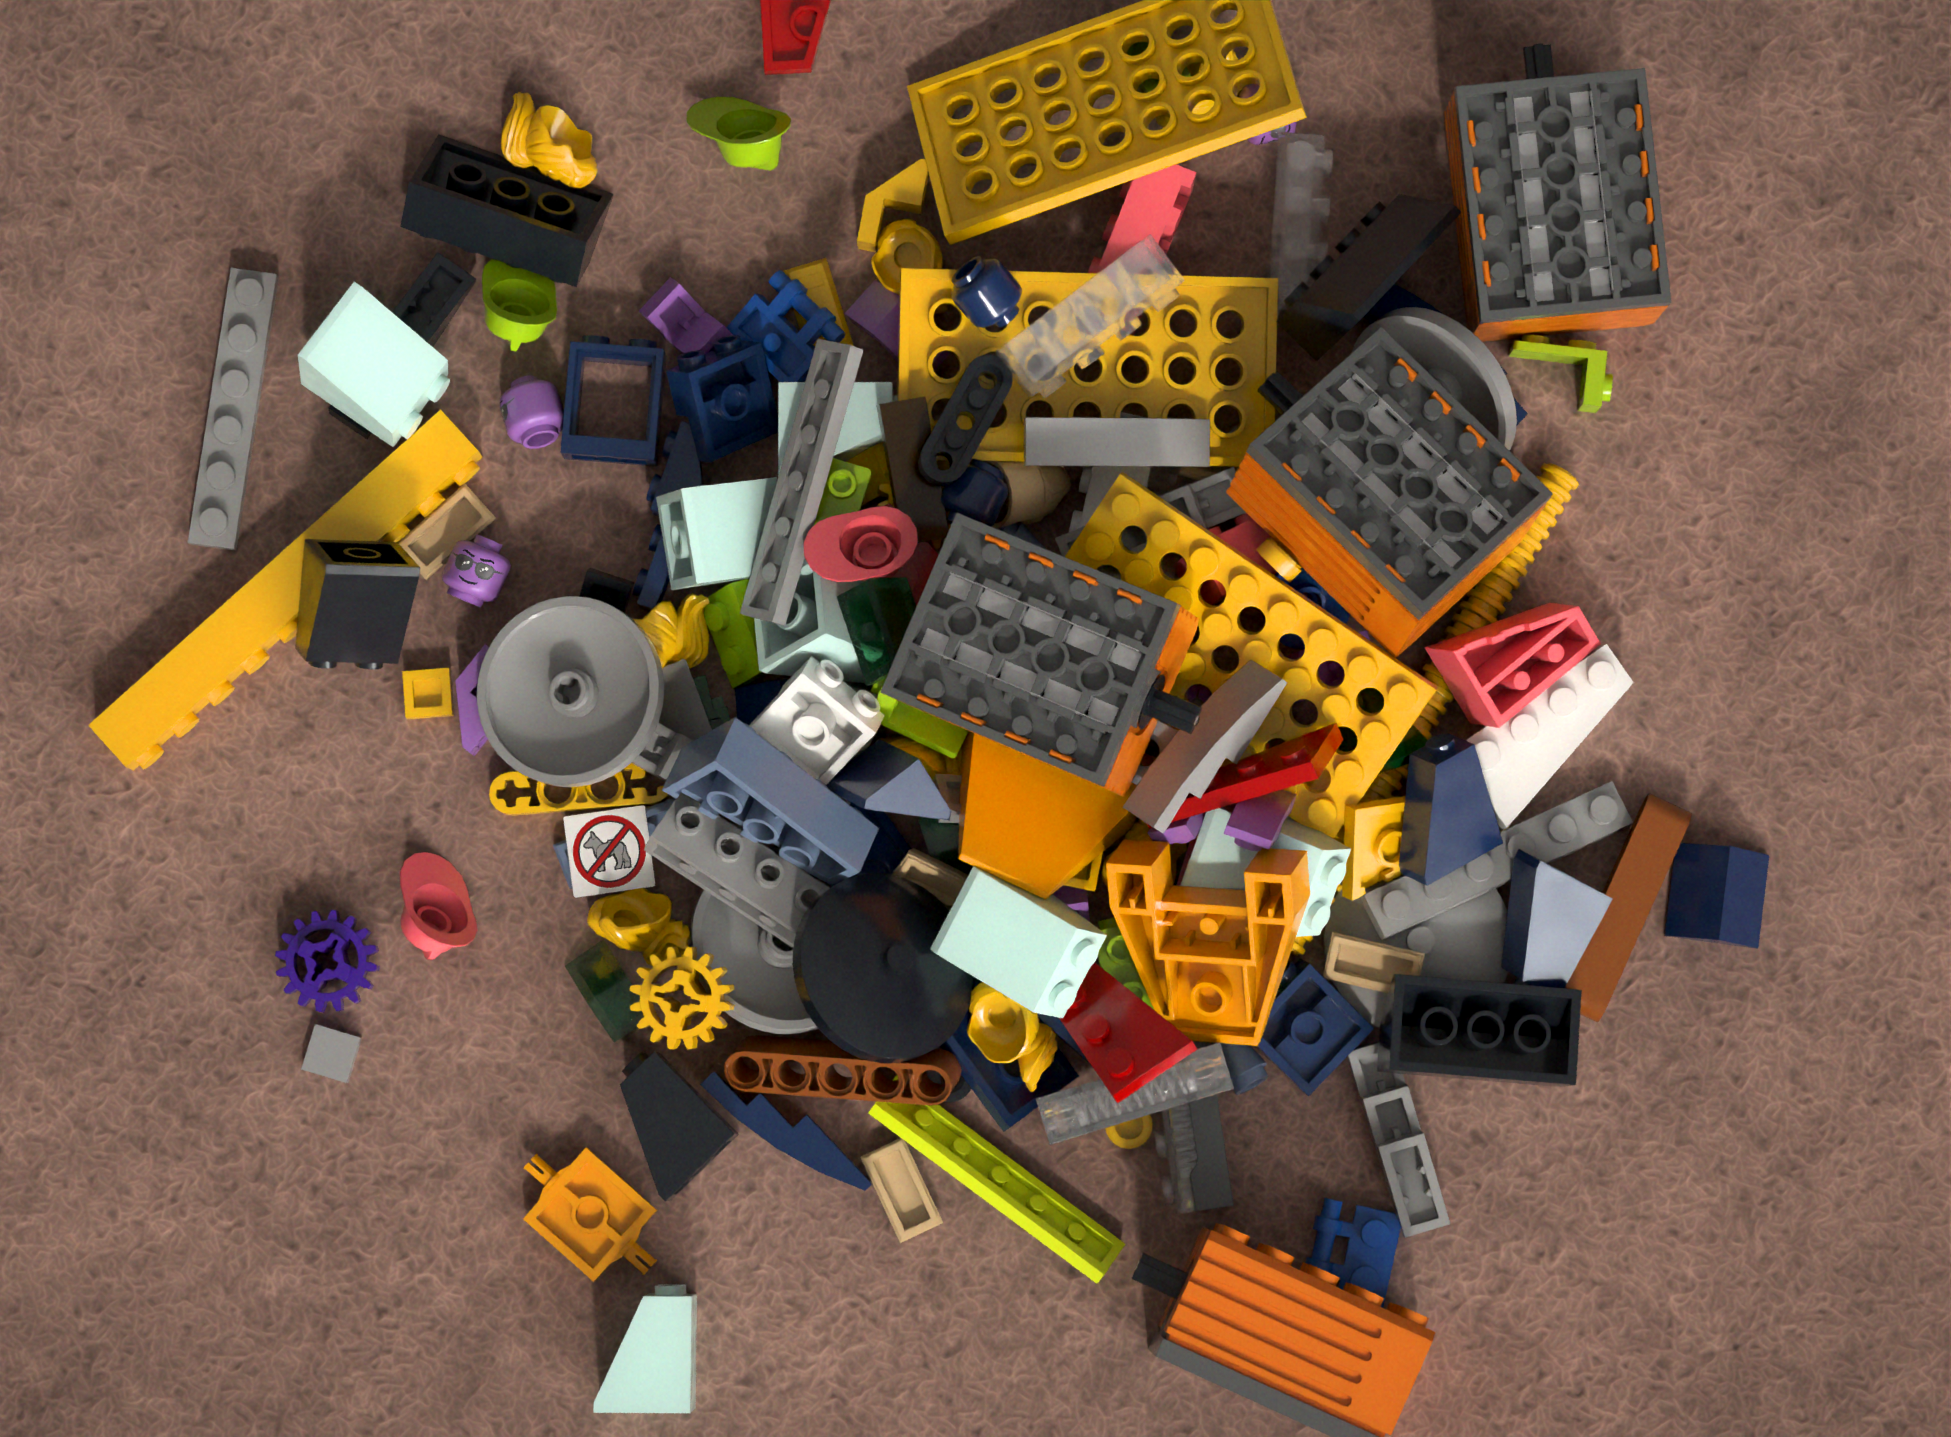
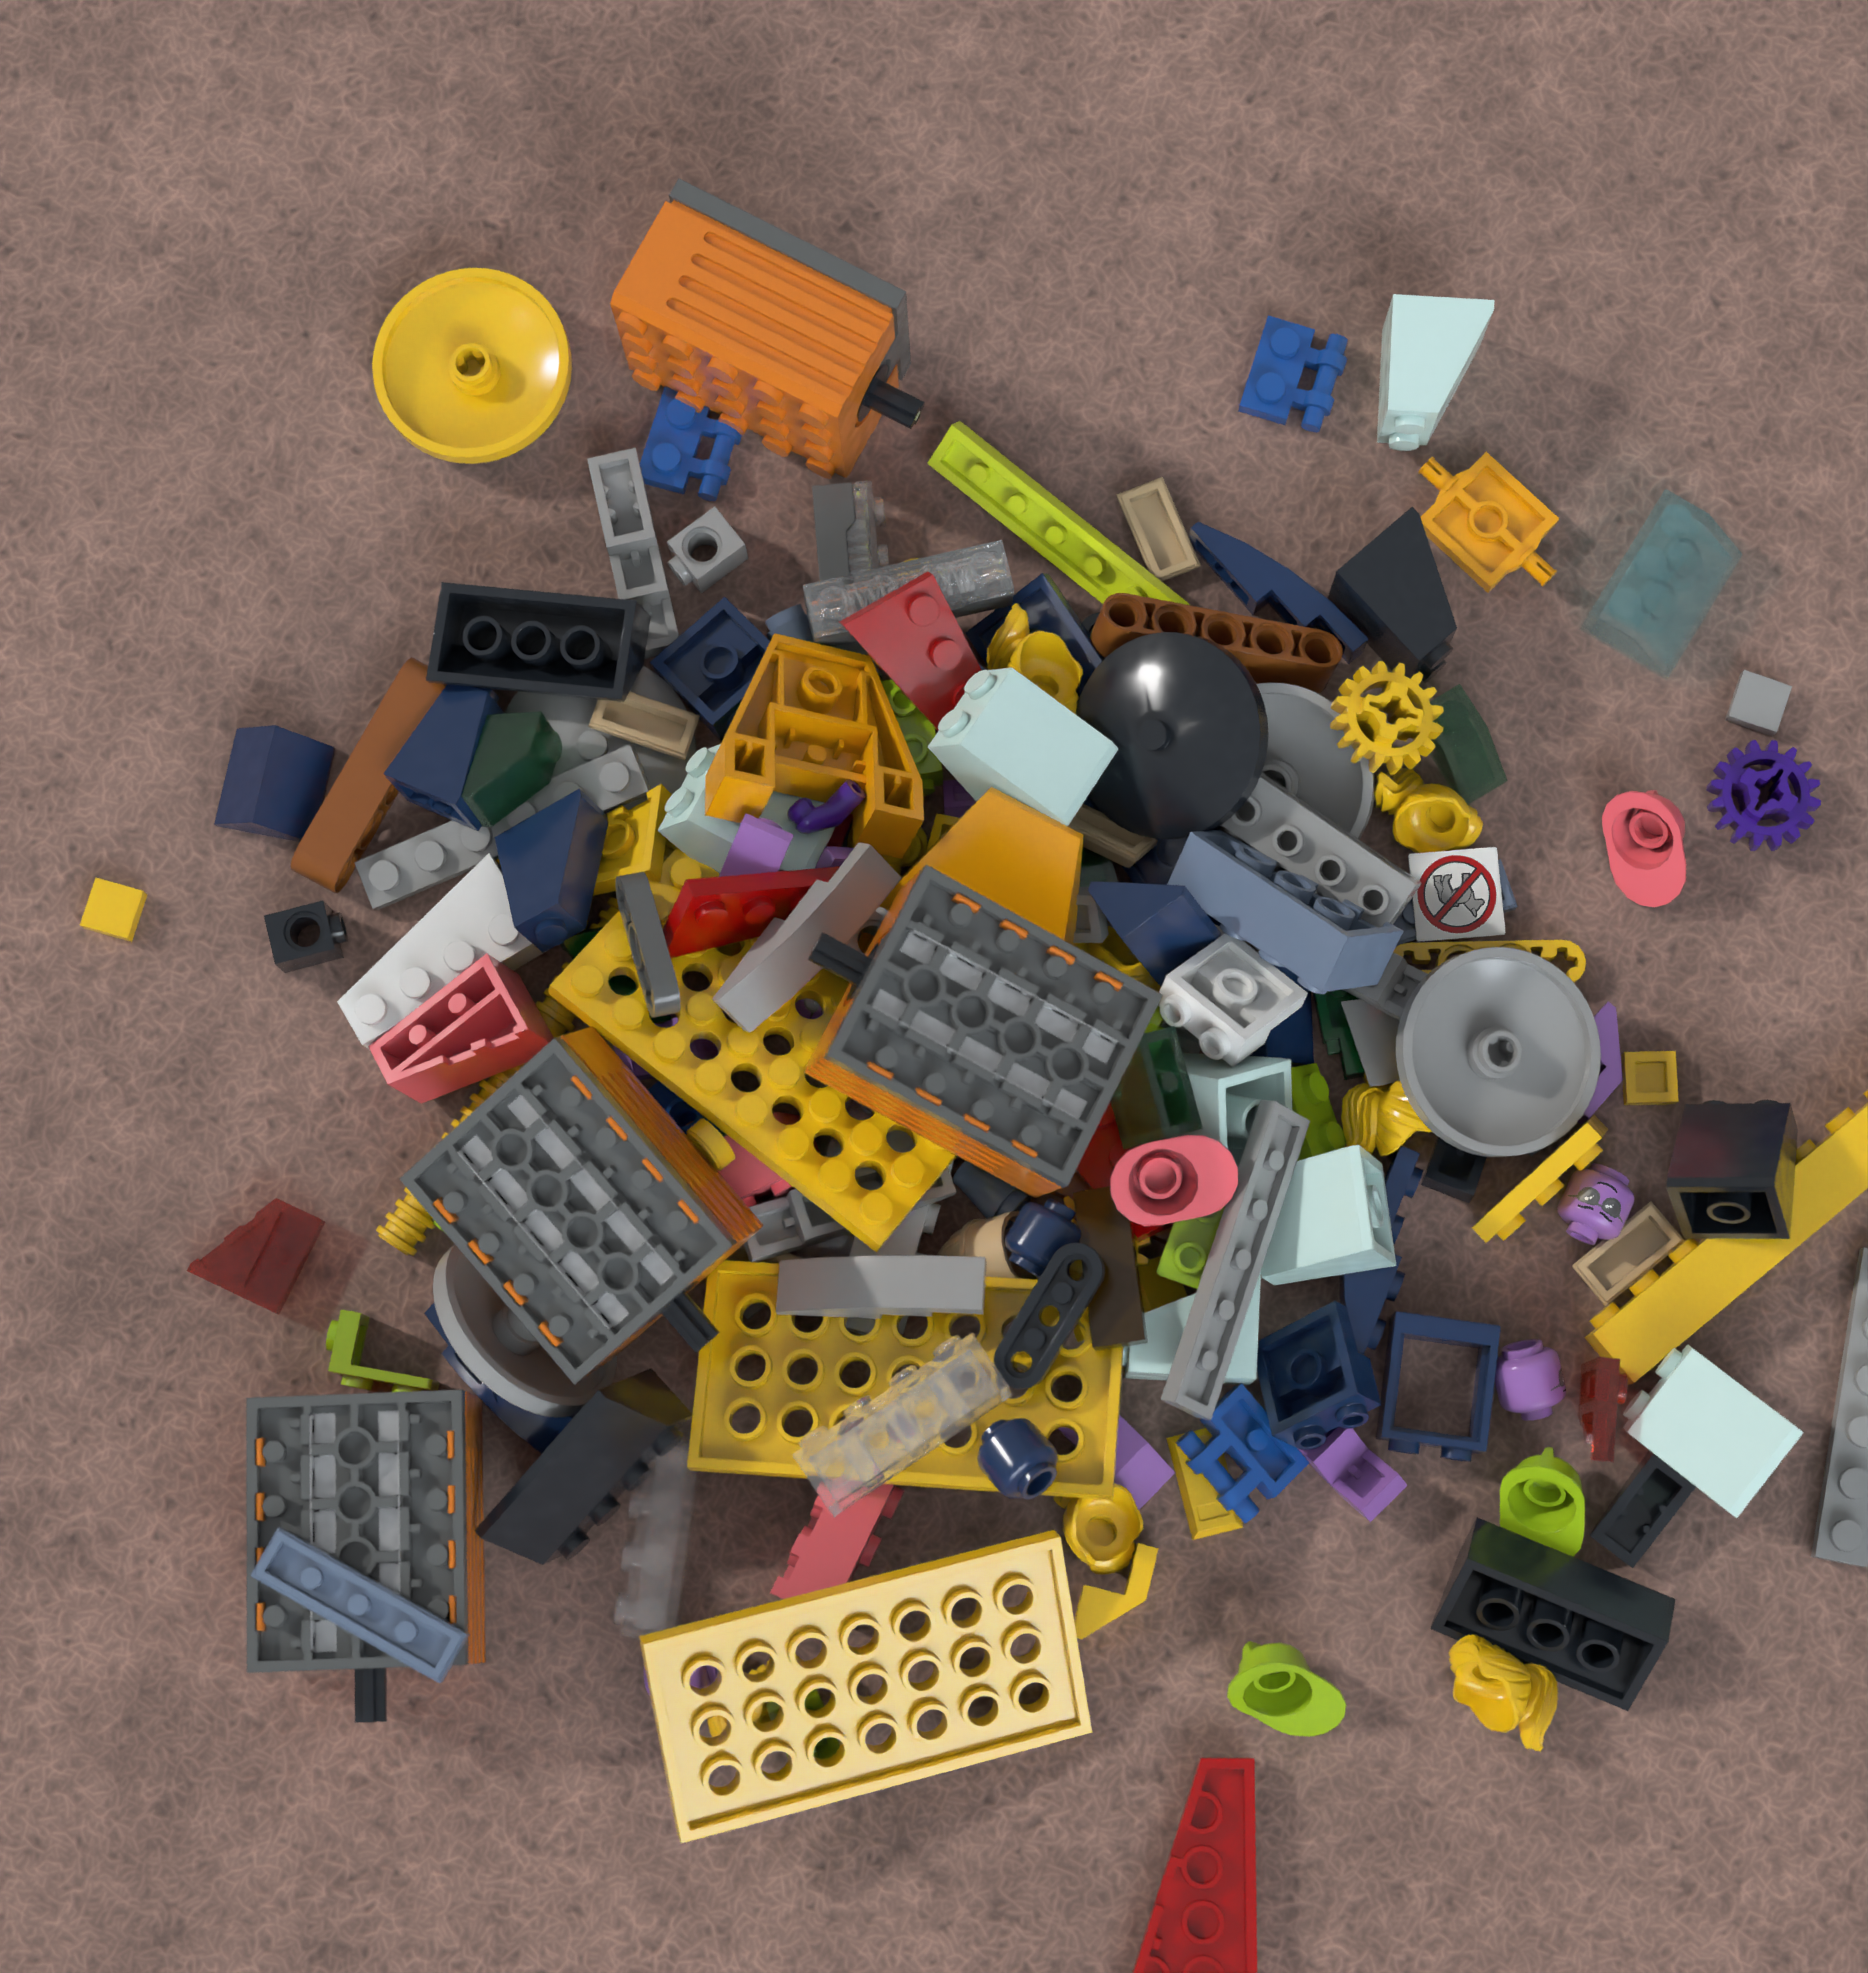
camera: 170 degrees left, 5 degrees down
(423, 1160) = (1664, 585): none -> clear light blue slope
(469, 397) = (1599, 1394): none -> clear red wing
(492, 611) = (1542, 1182): none -> yellow wing
(794, 1356) = (1278, 369): none -> blue plate
(1192, 871) = (828, 815): none -> dark purple arm
(1308, 1142) = (707, 530): none -> light grey brick
(1350, 731) = (647, 944): none -> dark grey beam
(1494, 911) = (510, 764): none -> clear green slope
(1552, 129) = (360, 1605): none -> sand blue tile
(1569, 1311) = (472, 365): none -> yellow dish
(1679, 456) = (263, 1256): none -> clear red wing
(1685, 735) = (284, 930): none -> black brick
(1853, 768) = (113, 909): none -> yellow tile

